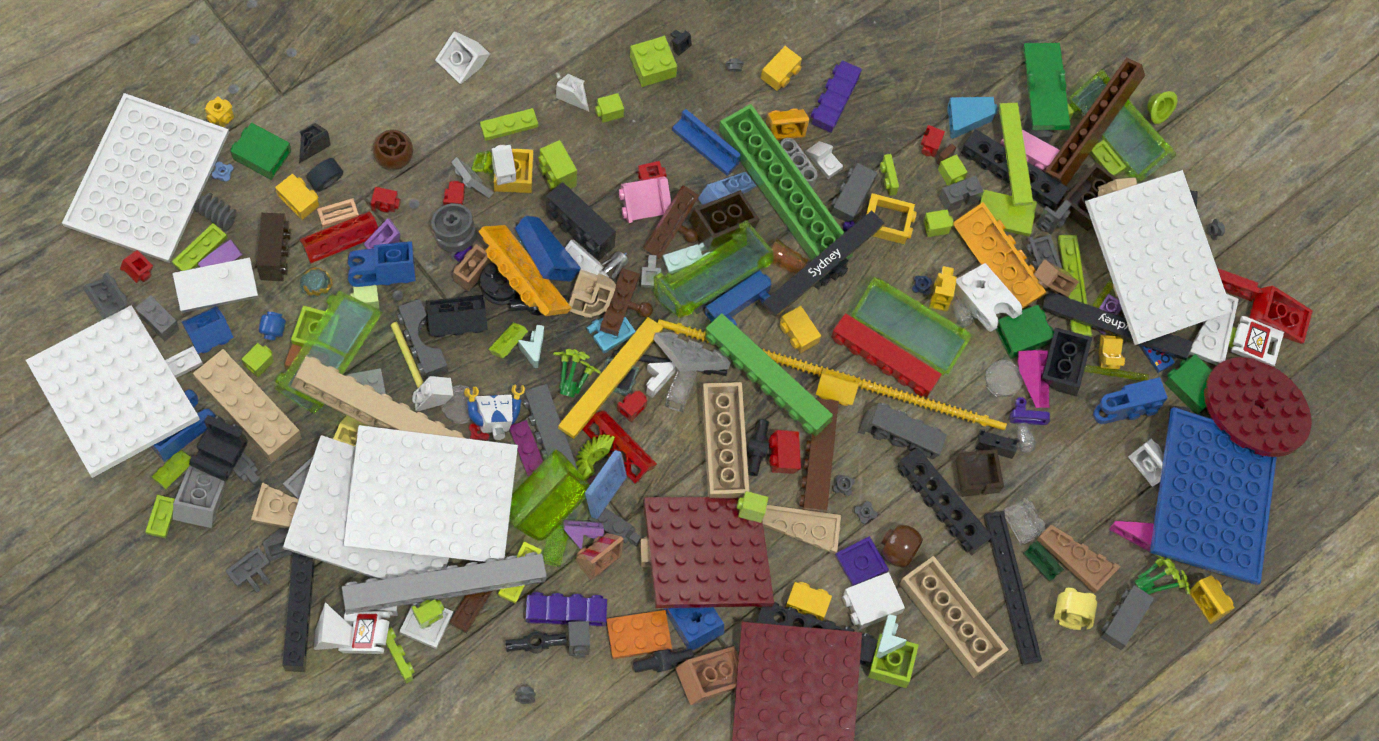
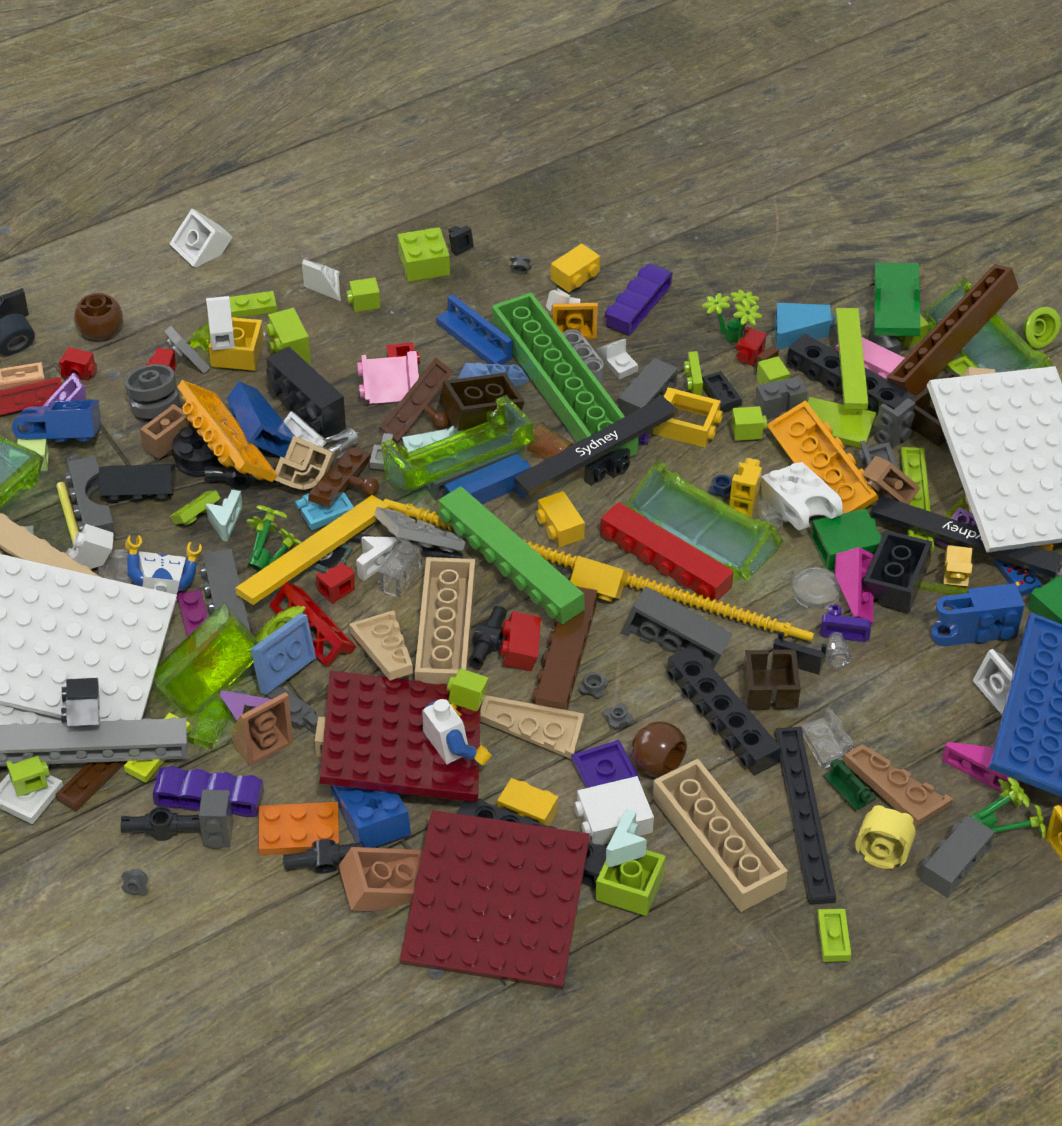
camera: 15 degrees right, 20 degrees down
(462, 553) = (81, 702): none -> brick
(676, 458) = (384, 644): none -> tan wing
(746, 554) = (448, 735): none -> white torso
(771, 102) = (559, 297): none -> white piece
(912, 188) = (720, 389): none -> black plate
(916, 123) = (735, 327): none -> lime plant
(1043, 693) = (834, 935): none -> lime plate

